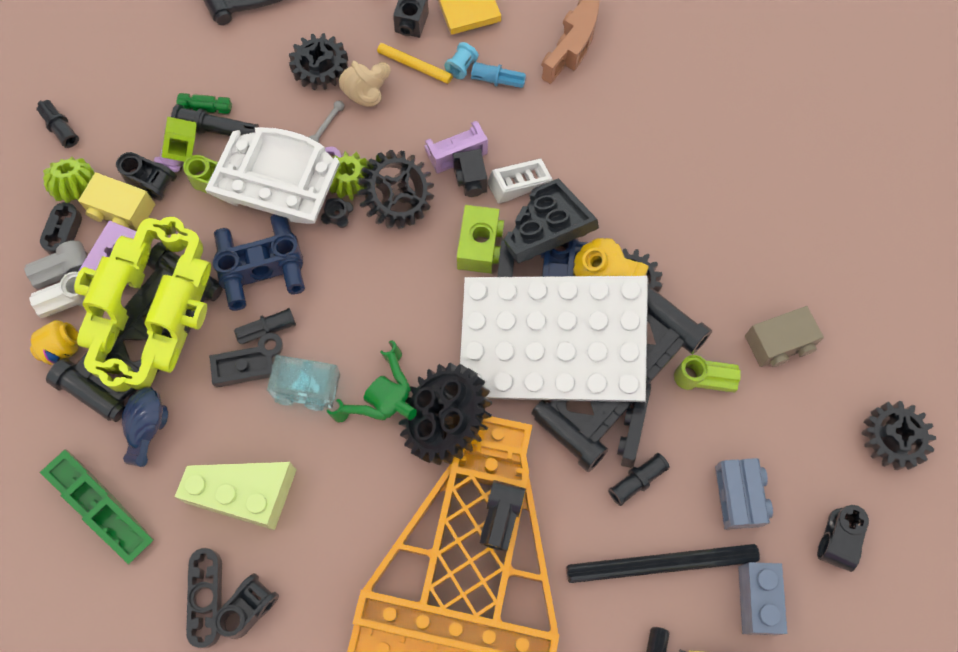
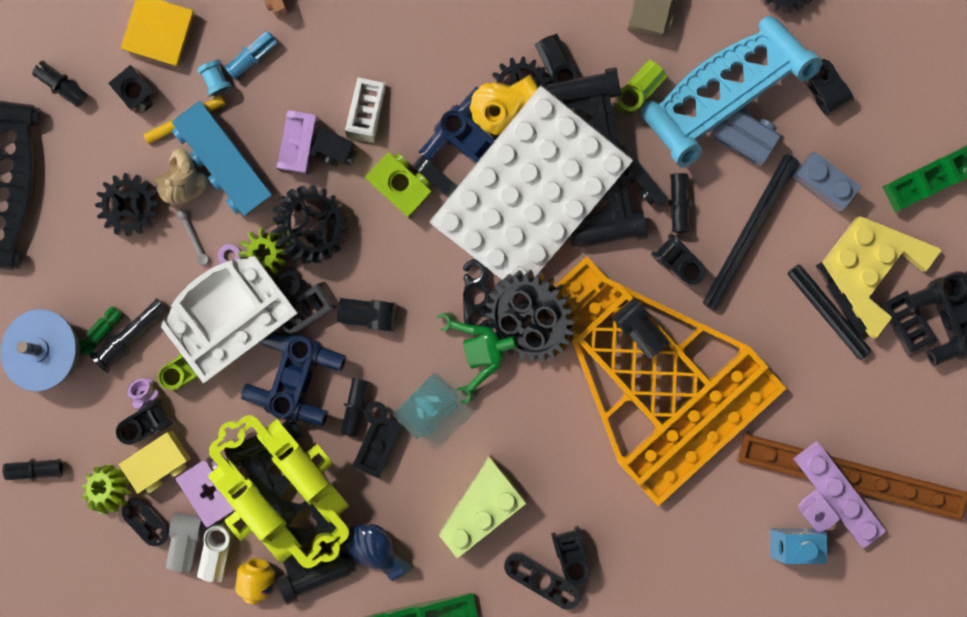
camera: 50 degrees left, 20 degrees up
(158, 67) = (39, 350): none -> medium blue piece
(178, 139) = (132, 376): lime brick -> none
(341, 244) = (327, 299): none -> black slope
(355, 288) = (373, 314): none -> black piece
(402, 98) = (221, 157): none -> dark azure brick
(415, 363) = (481, 282): none -> black piece
(548, 221) = (428, 120): black plate -> none
(589, 510) = (678, 260): none -> black piece
(678, 286) = (555, 57): none -> black piece
(839, 472) = (681, 131): none -> medium azure piece

